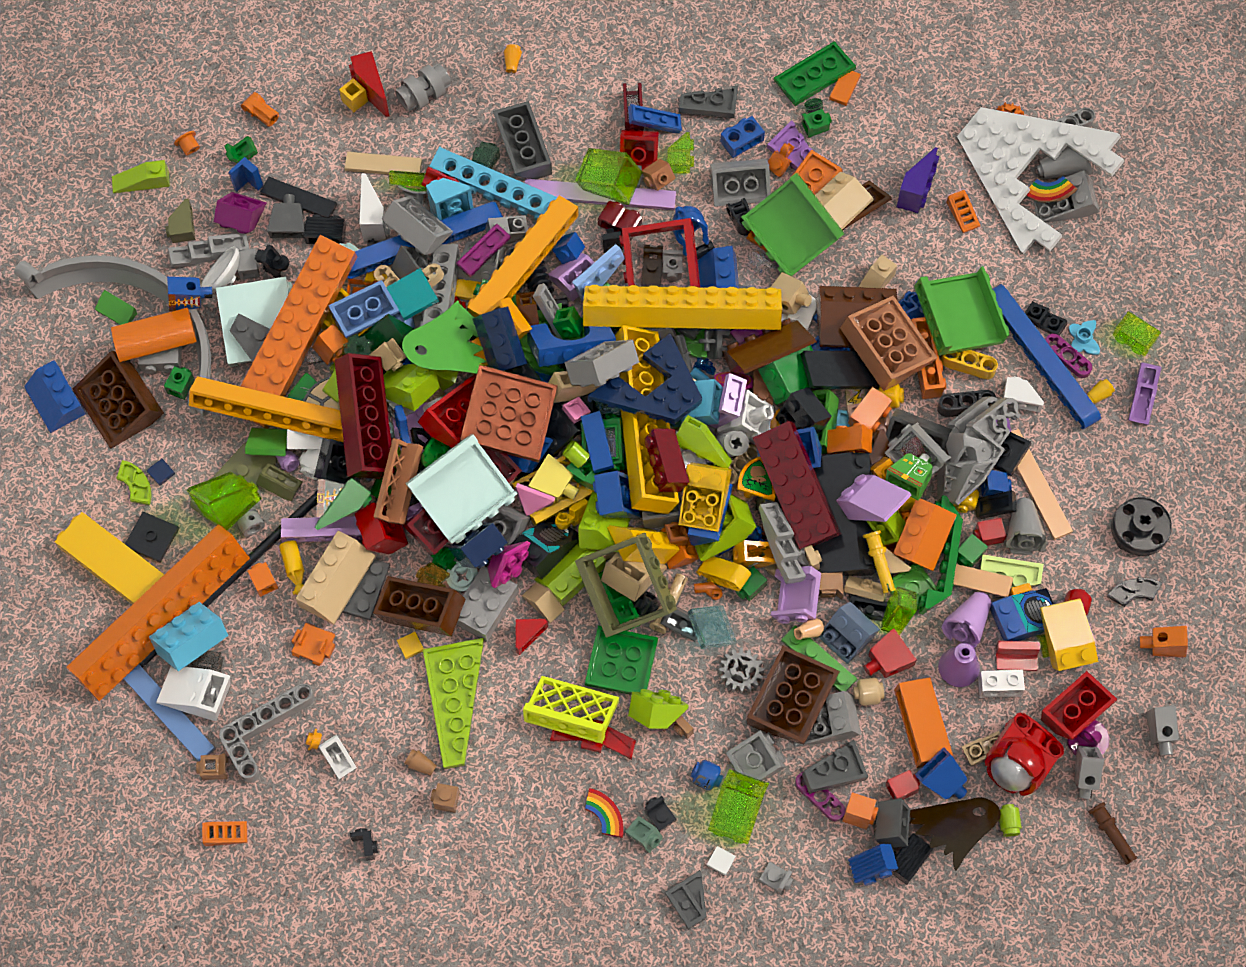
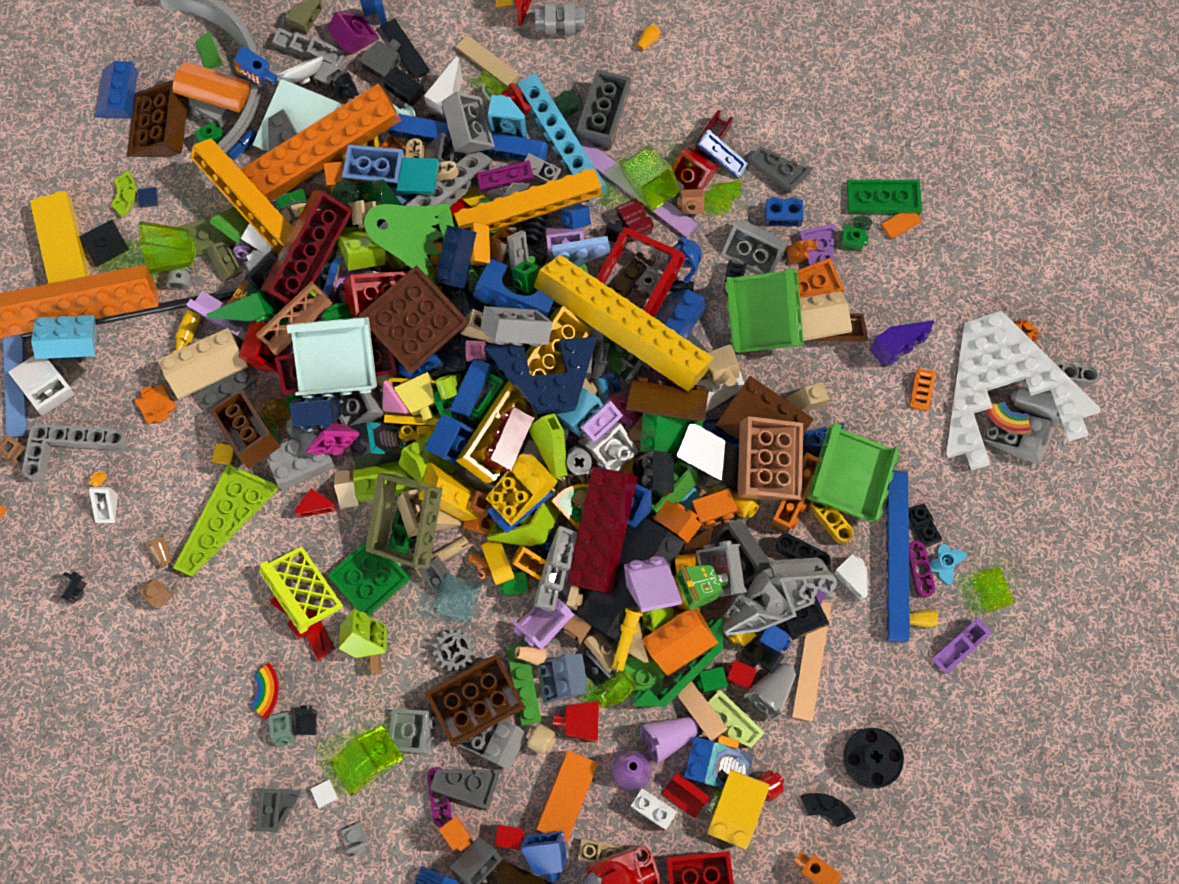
camera: 35 degrees right, 5 degrees up
(216, 360) = (242, 144): none -> blue axle
(262, 578) = (155, 328): orange brick -> none
(706, 775) = (363, 716): blue head -> none

